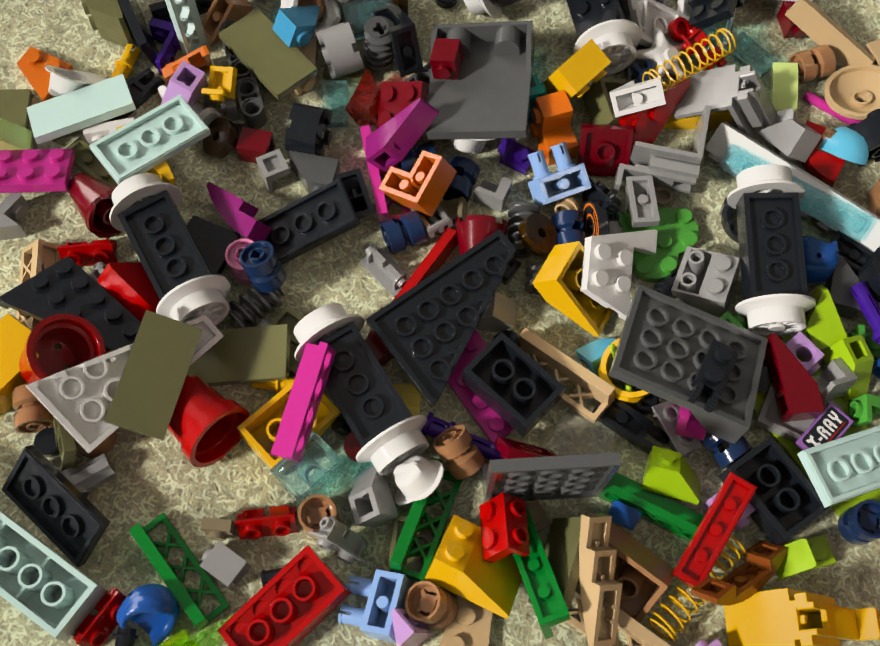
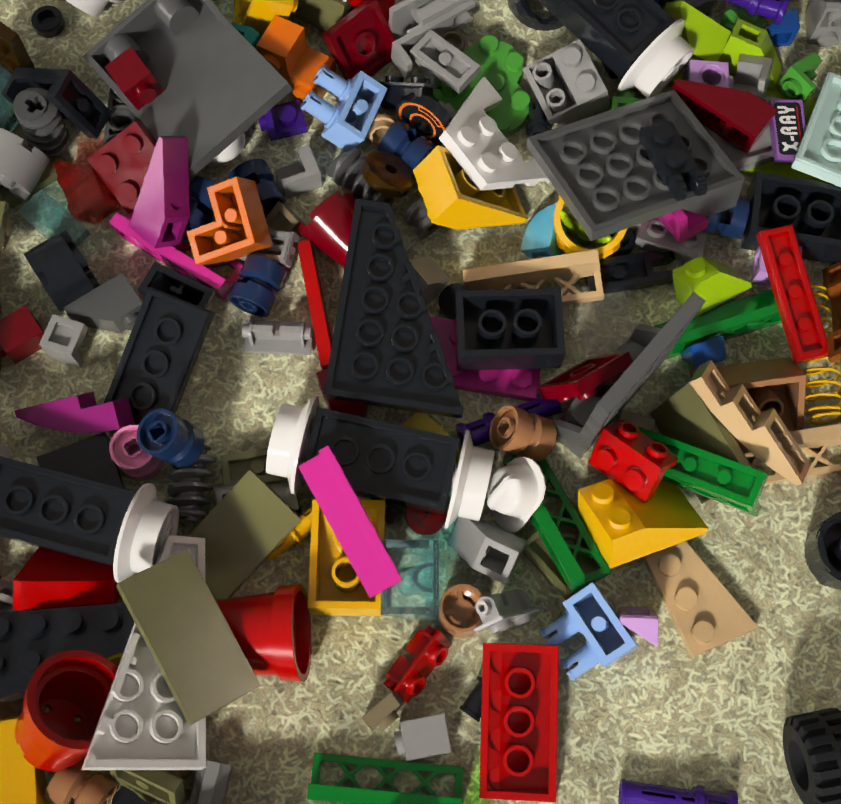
camera: 45 degrees left, 5 degrees up
(431, 605) = (636, 585): medium nougat wheel -> none

